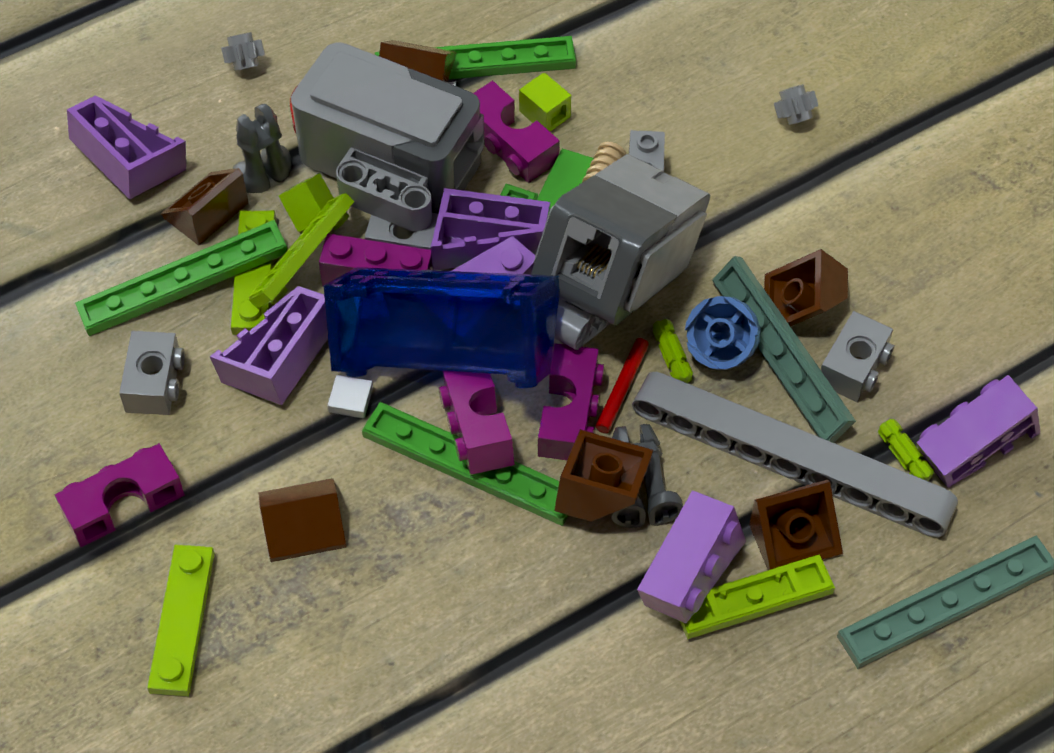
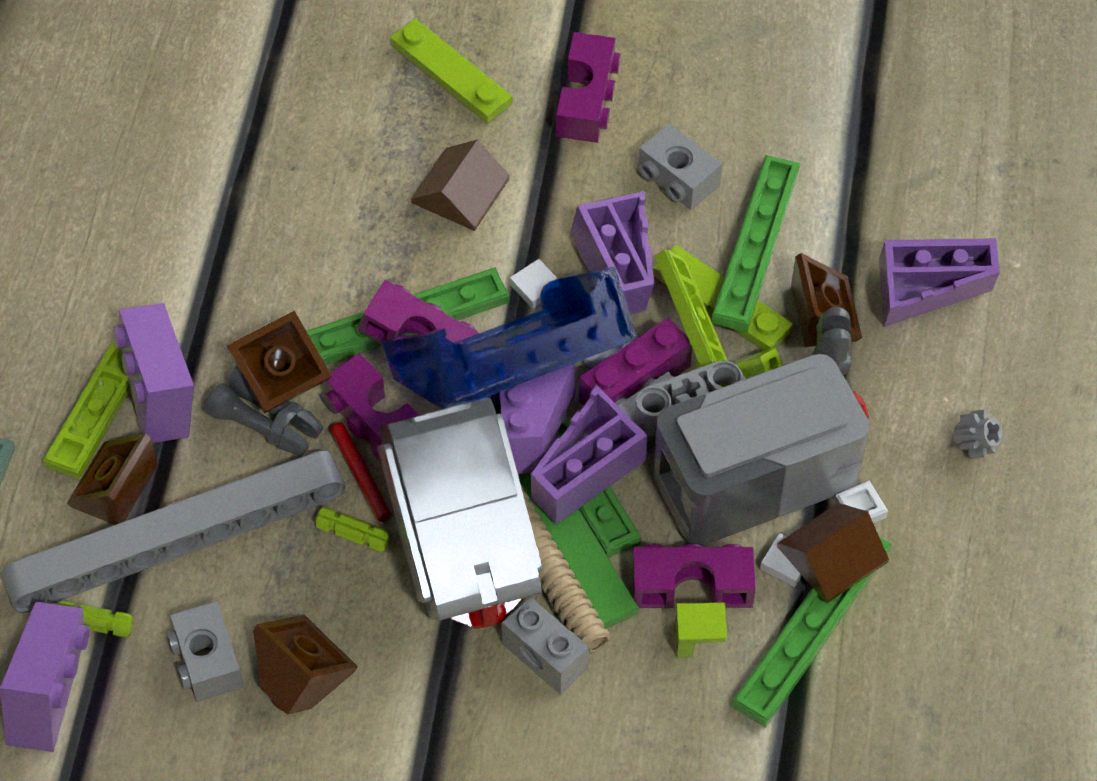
camera: 130 degrees right, 0 degrees up
(722, 332) = (320, 559): medium blue cylinder -> none
(787, 354) = (270, 602): sand green tile -> none

